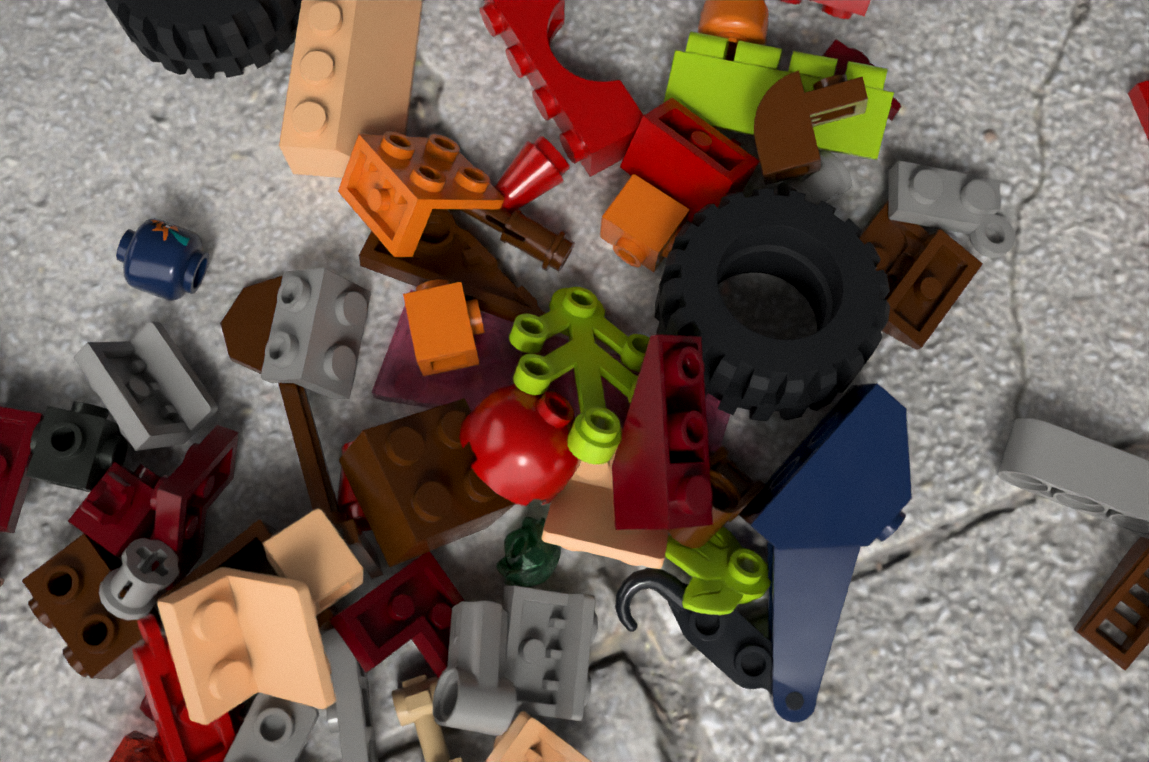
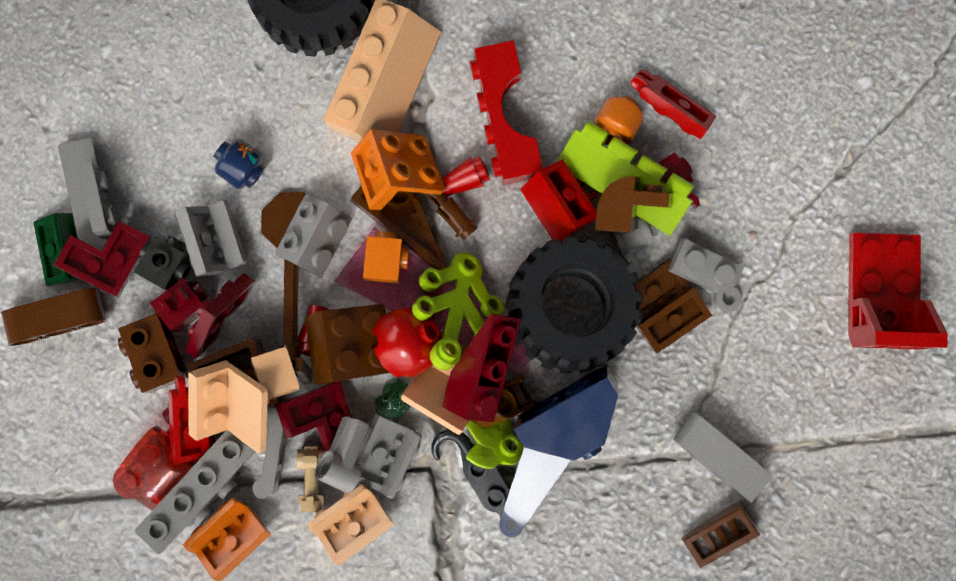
camera: 20 degrees right, 10 degrees up
(143, 593) = (183, 354): light grey bush -> none
(642, 224) = (521, 230): orange brick -> none

